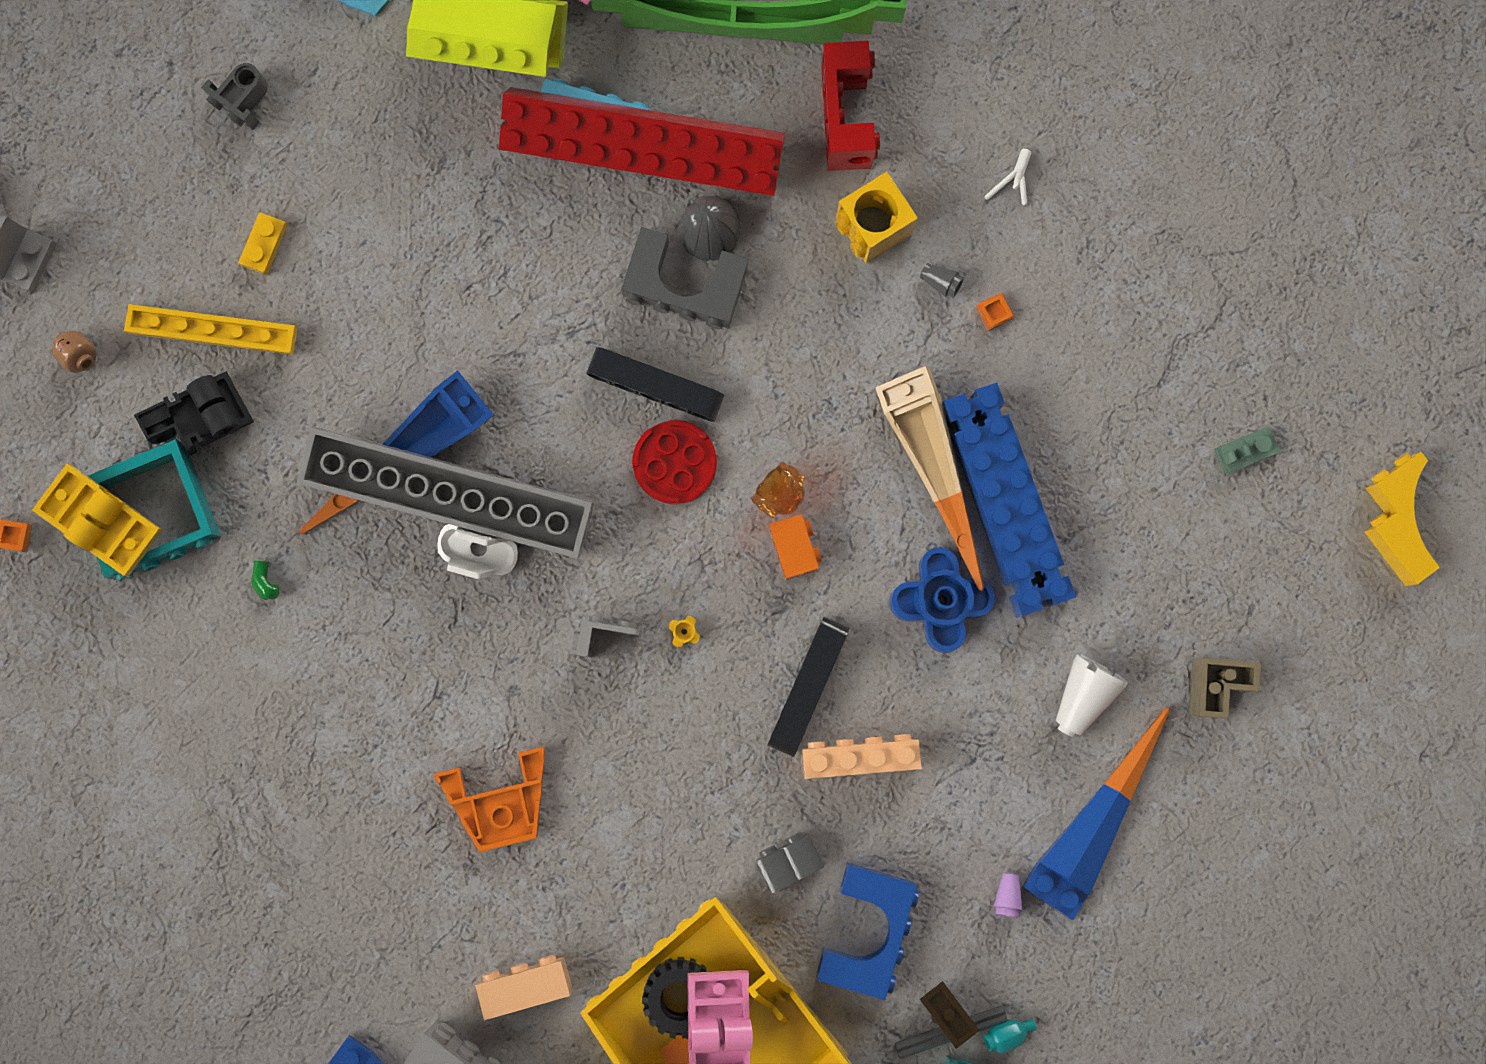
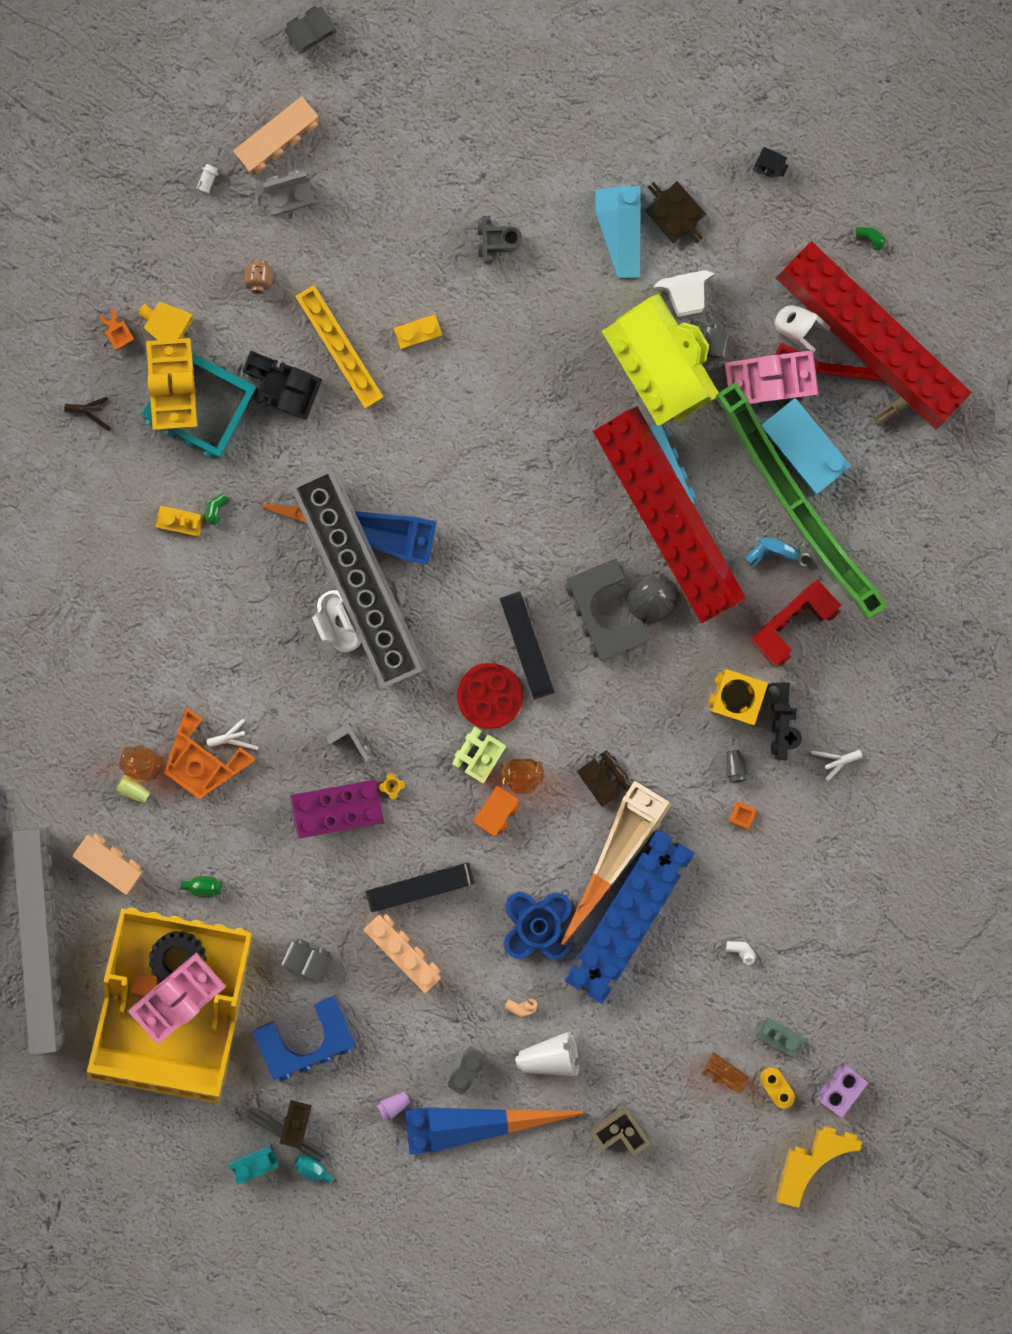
camera: 50 degrees right, 5 degrees up
(34, 475) = (165, 321): none -> yellow torso
(53, 632) = (83, 409): none -> dark brown plant
(245, 627) = (179, 521): none -> yellow plate
(450, 868) = (140, 763): none -> clear orange hair
(470, 899) = (132, 790): none -> yellowish green cone
(499, 759) = (227, 738): none -> white plant
(627, 908) = (203, 886): none -> green plant
(660, 705) = (336, 809): none -> magenta plate
(732, 516) = (484, 759): none -> yellowish green plate
(758, 70) = (774, 547): none -> dark azure arm
(848, 424) = (599, 783): none -> dark brown plate
(947, 202) = (781, 724): none -> black plate
(1014, 685) = (523, 1009): none -> light nougat arm
(1035, 799) = (462, 1075): none -> dark grey brick
(1130, 417) = (743, 949): none -> white arm
(1243, 530) = (726, 1072): none -> clear orange plate
(1296, 494) = (777, 1088): none -> yellow plate
(1359, 429) = (848, 1094): none -> lavender brick

